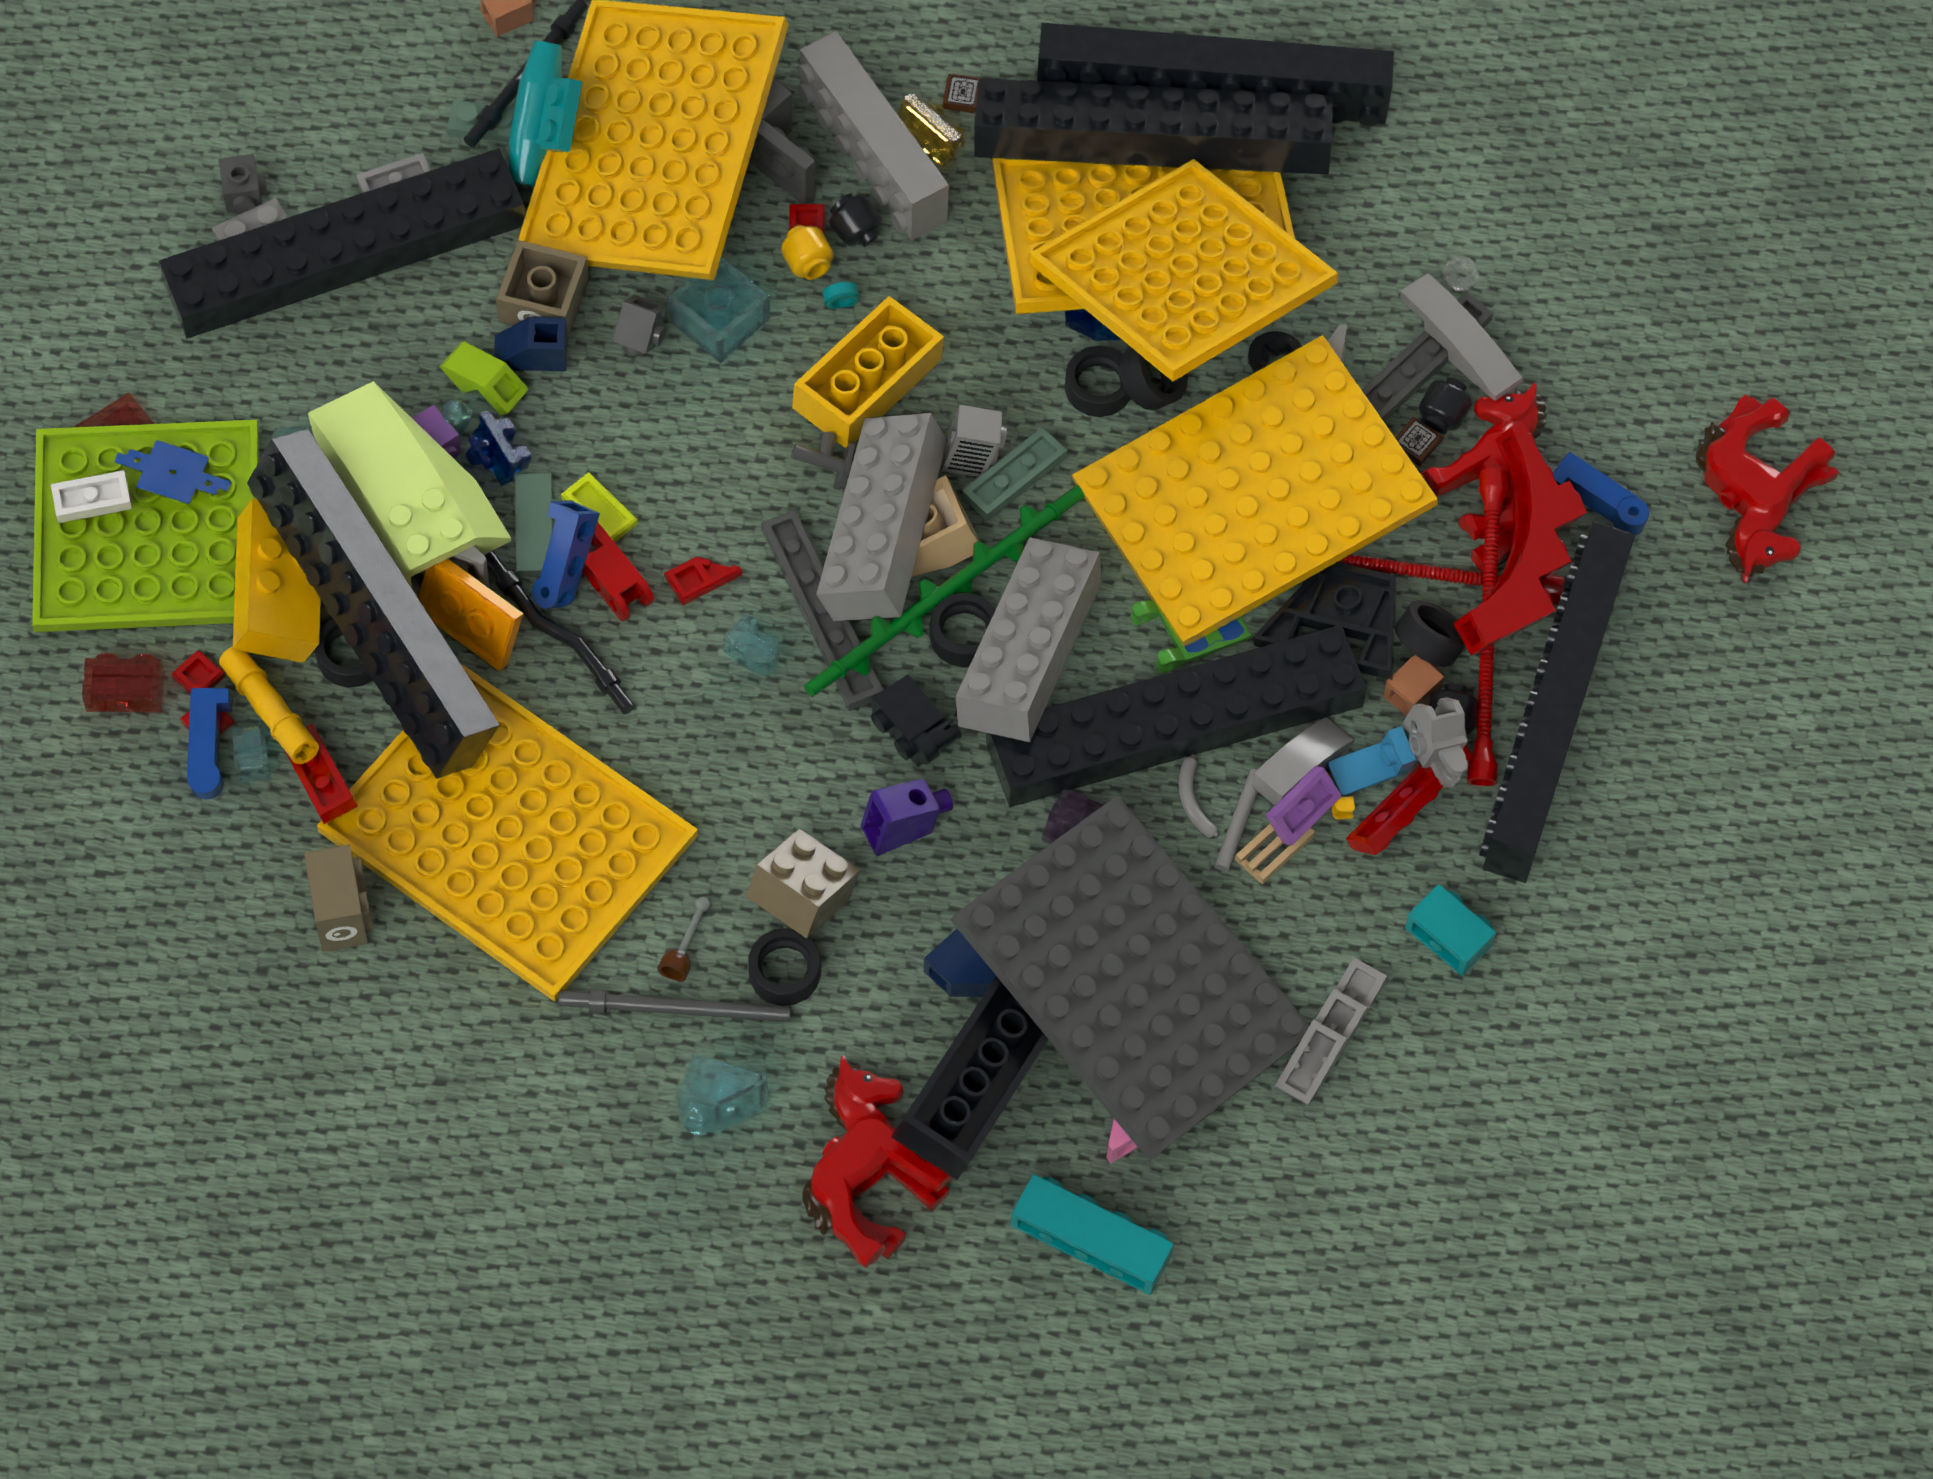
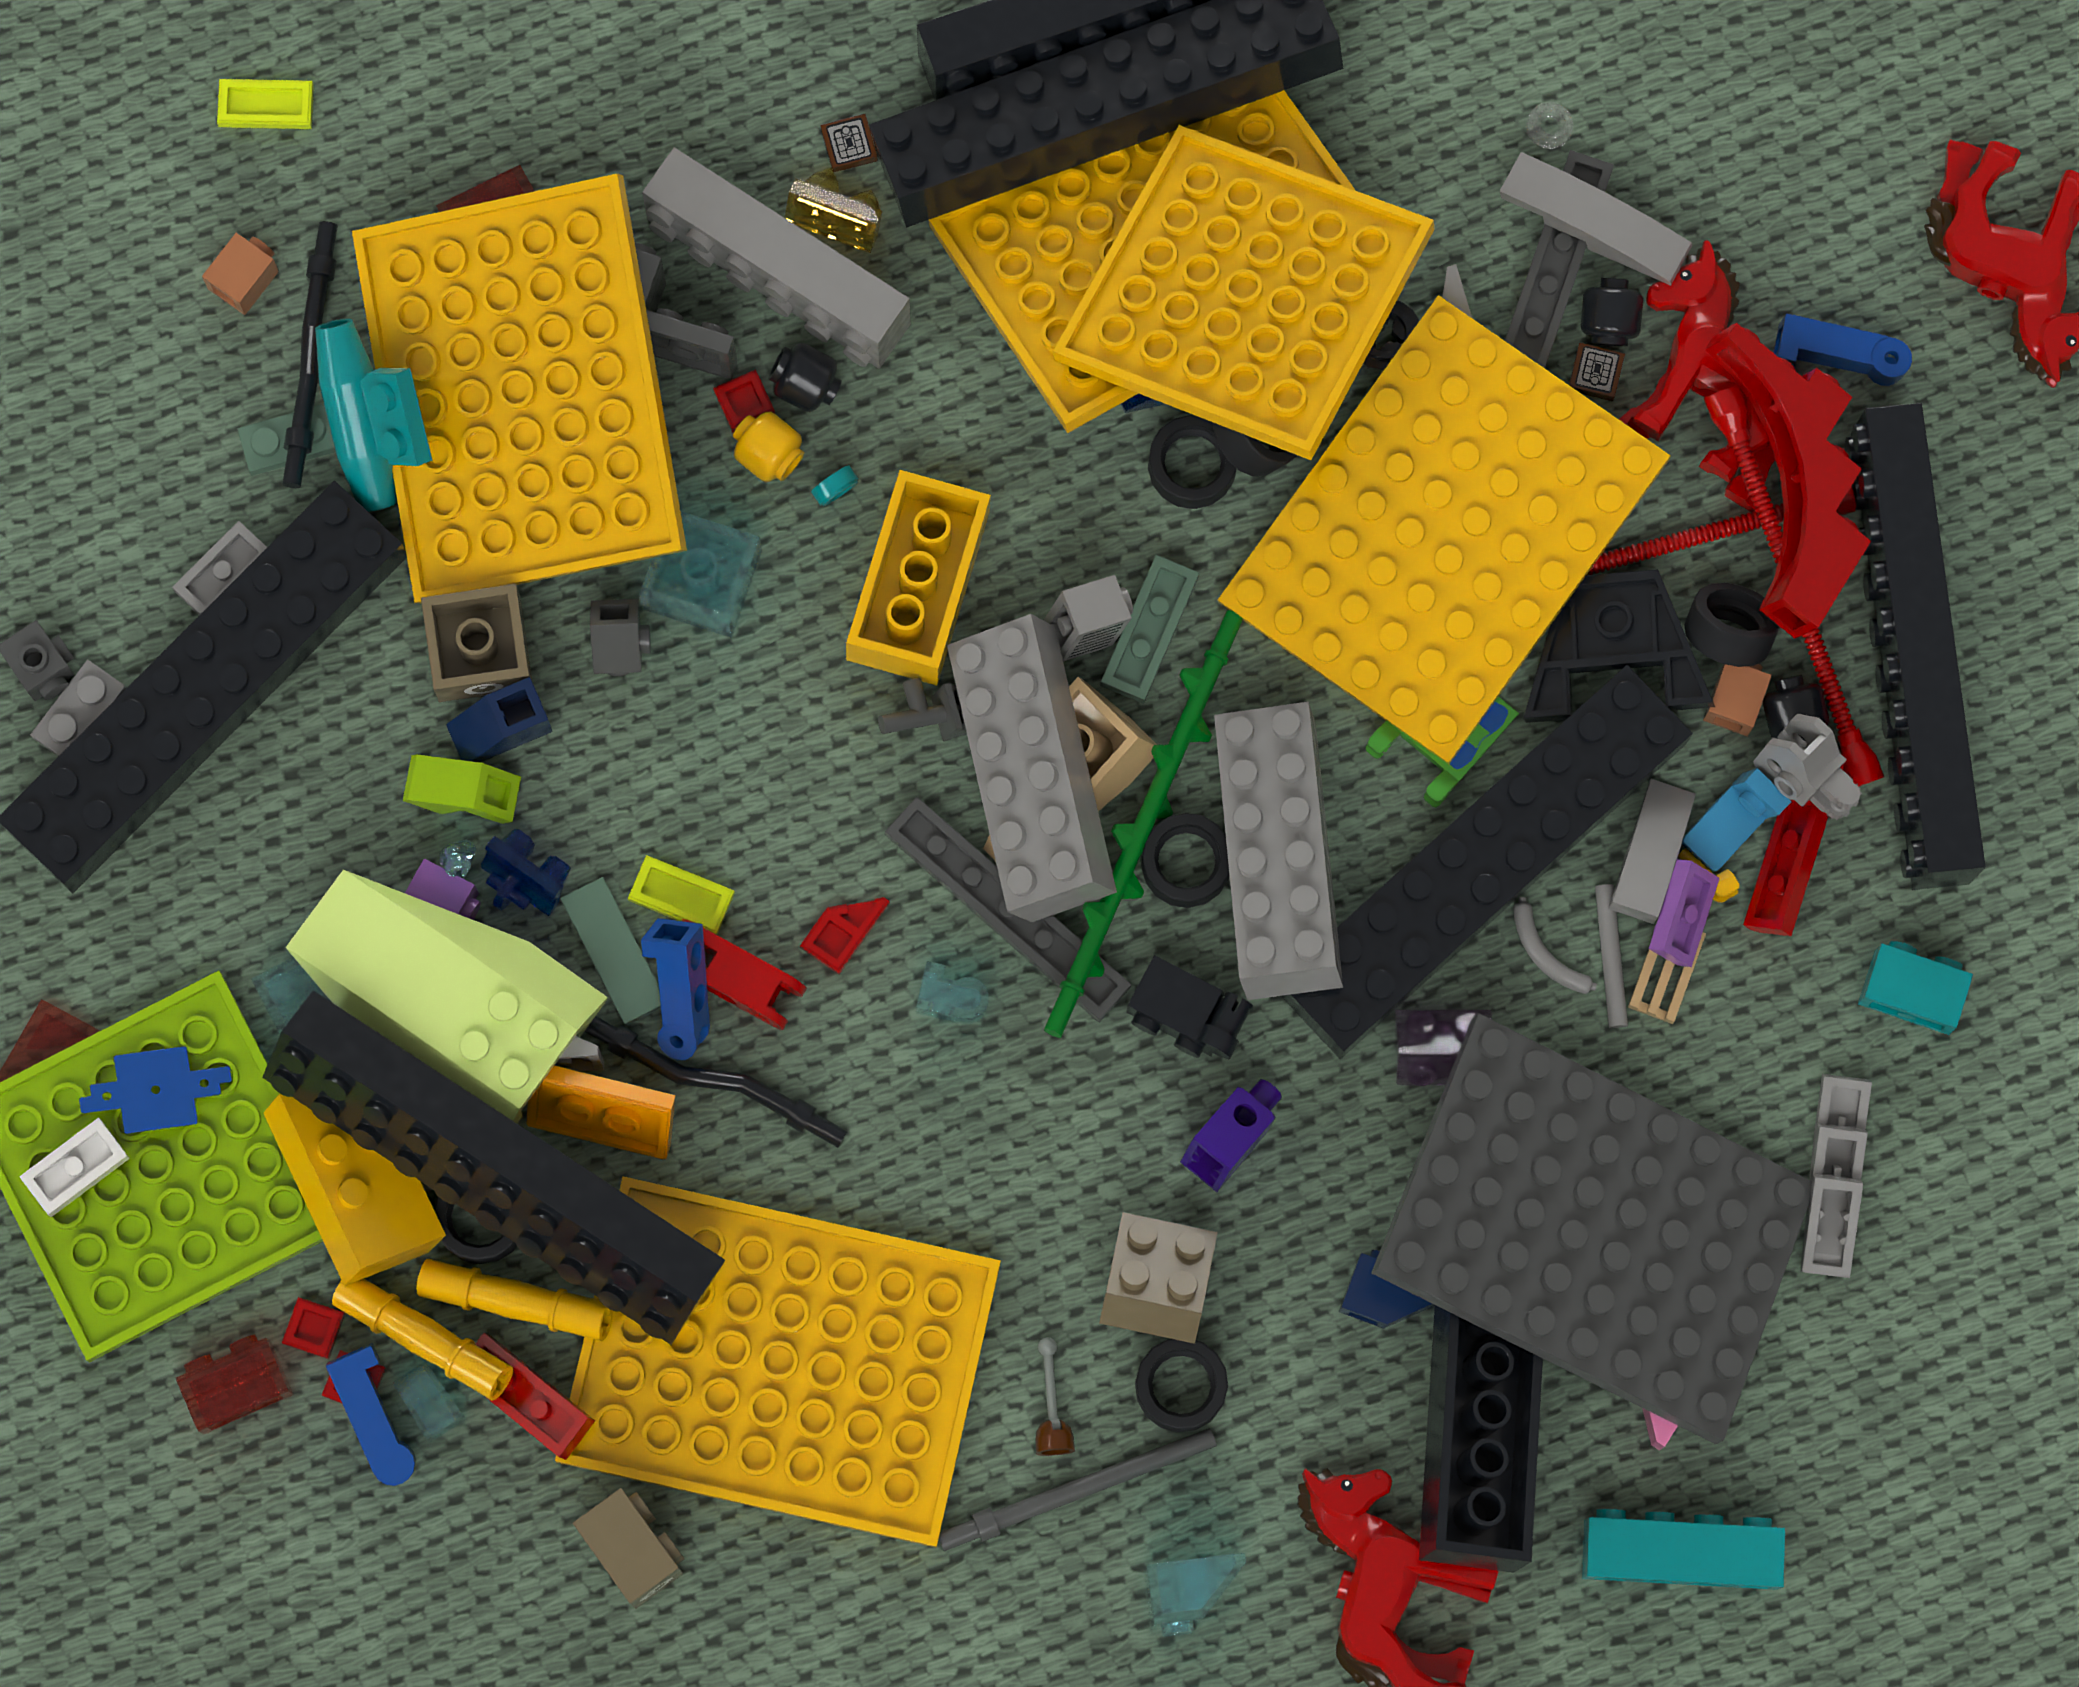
camera: 25 degrees left, 15 degrees up
(345, 709) = (514, 1299): none -> yellow piece

